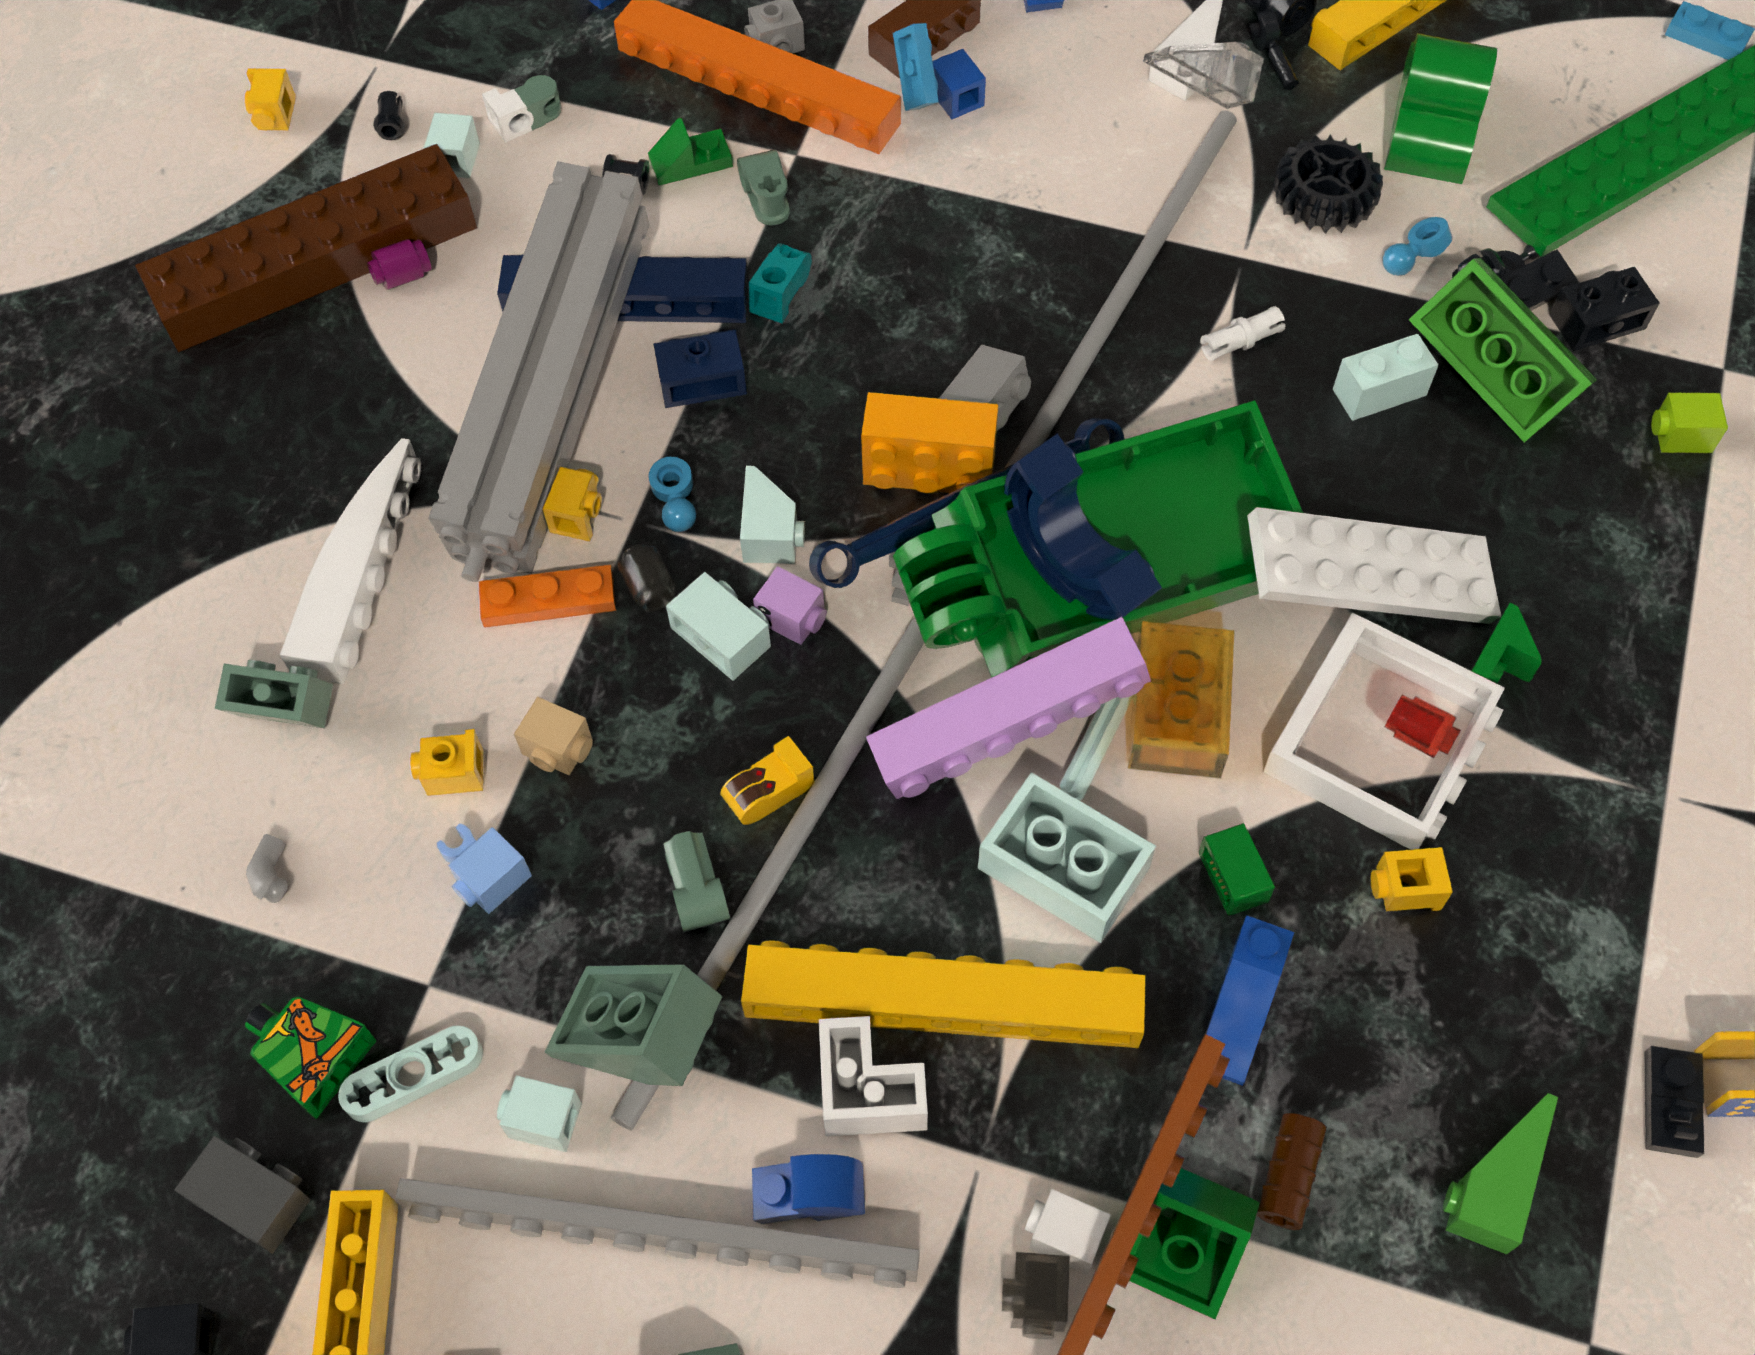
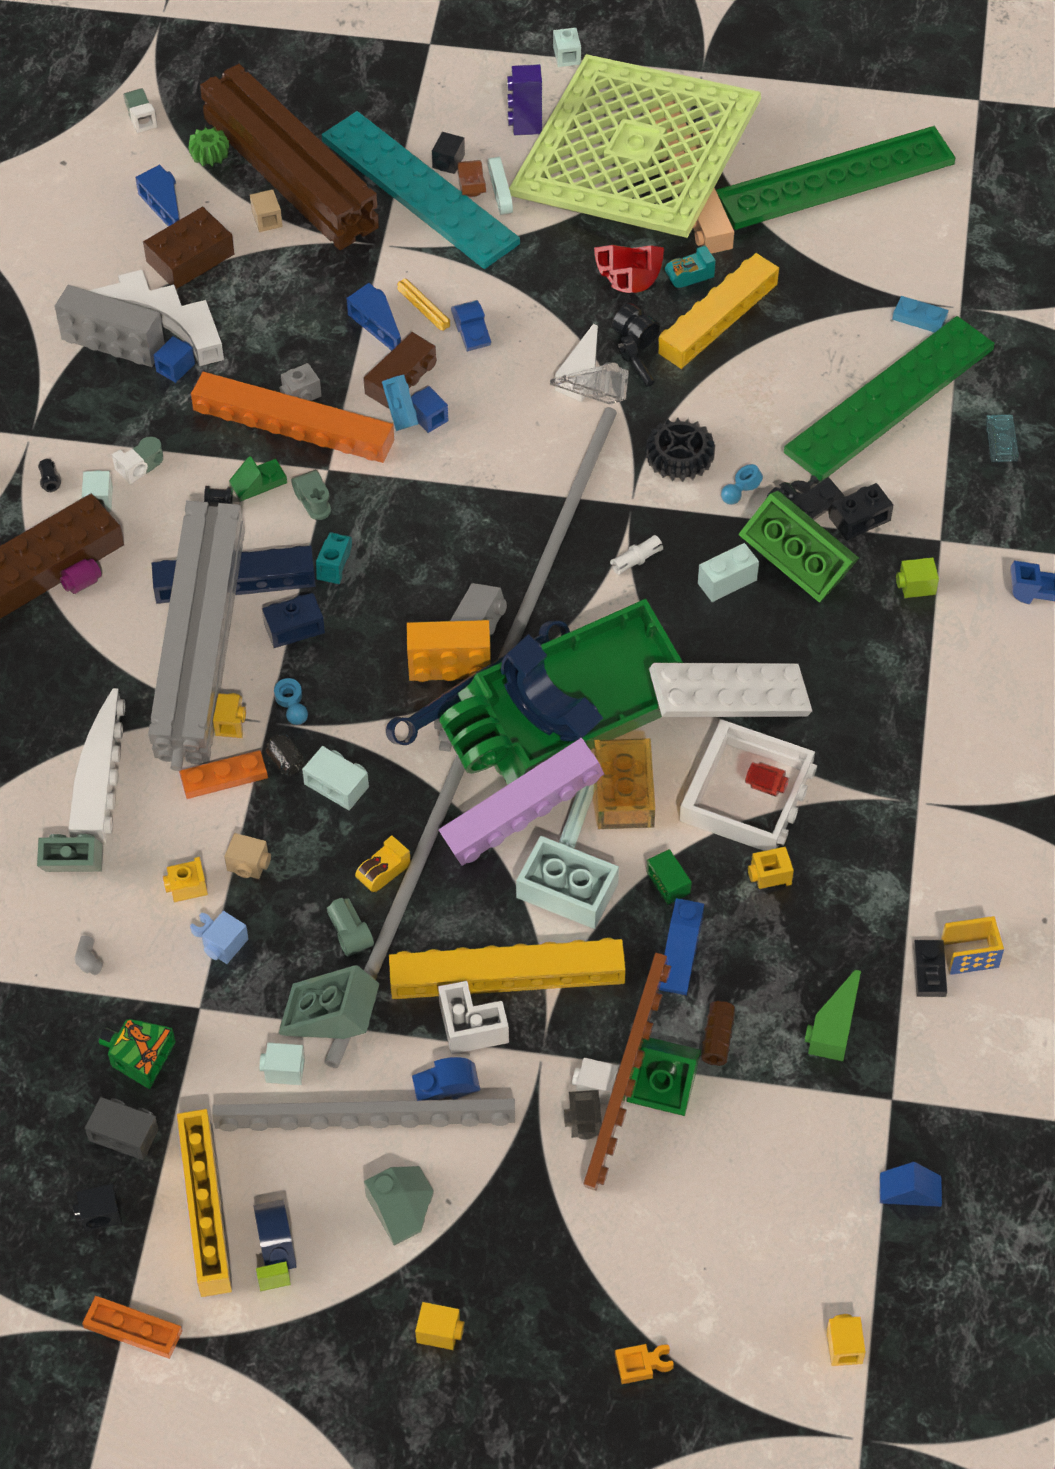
camera: 10 degrees left, 5 degrees down
(390, 1066) = (199, 1067): light aqua beam -> none
(768, 522) = (355, 711): light aqua slope -> none
(791, 605) = (379, 759): lavender brick -> none
(1439, 107) = (746, 392): green brick -> none
(1509, 649) = (816, 729): green slope -> none

